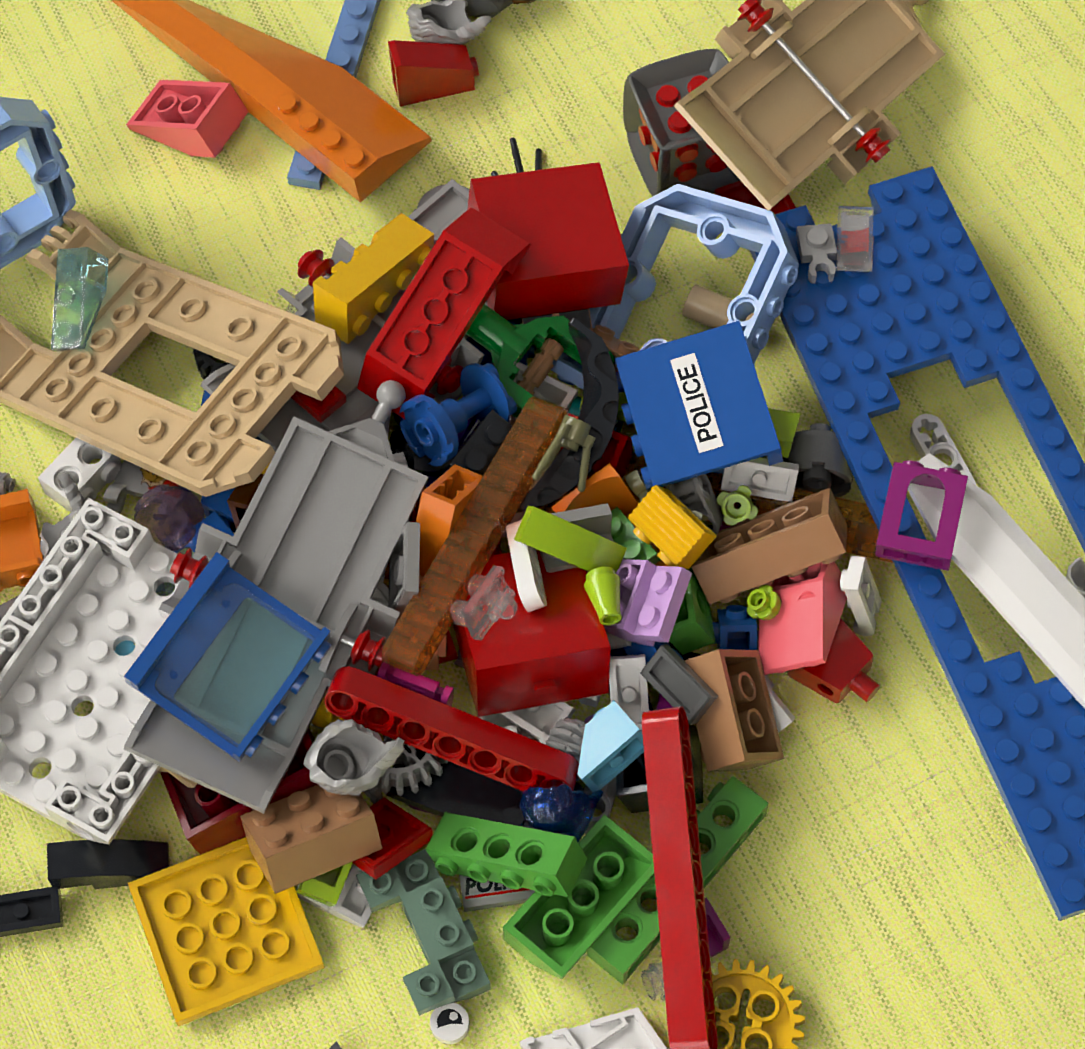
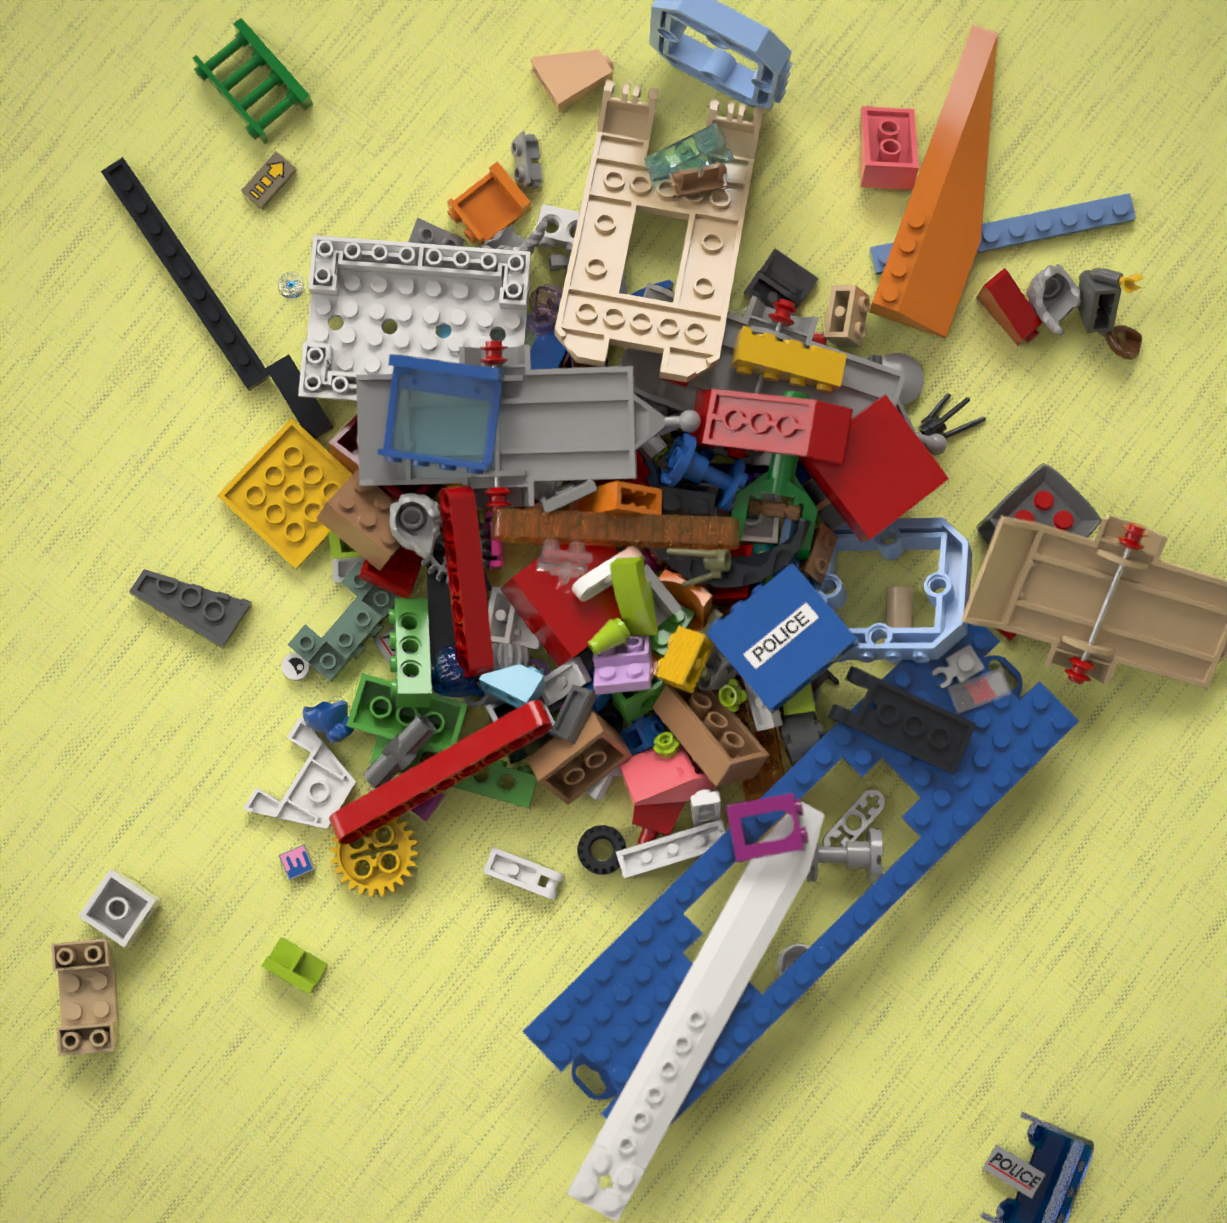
camera: 60 degrees right, 20 degrees up
(110, 298) = (699, 180): none -> medium nougat hinge
(270, 272) = (781, 279): none -> black slope
(345, 219) = (846, 316): none -> tan brick
(541, 1003) = (329, 719): none -> blue hair
(629, 920) = (400, 751): none -> dark grey piece
(846, 854) = (522, 873): none -> white plate
(857, 325) = (906, 722): none -> black hinge
(860, 726) = (586, 842): none -> black tyre
(892, 662) = (669, 849): none -> white fence
(991, 450) = (855, 856): none -> light grey piece

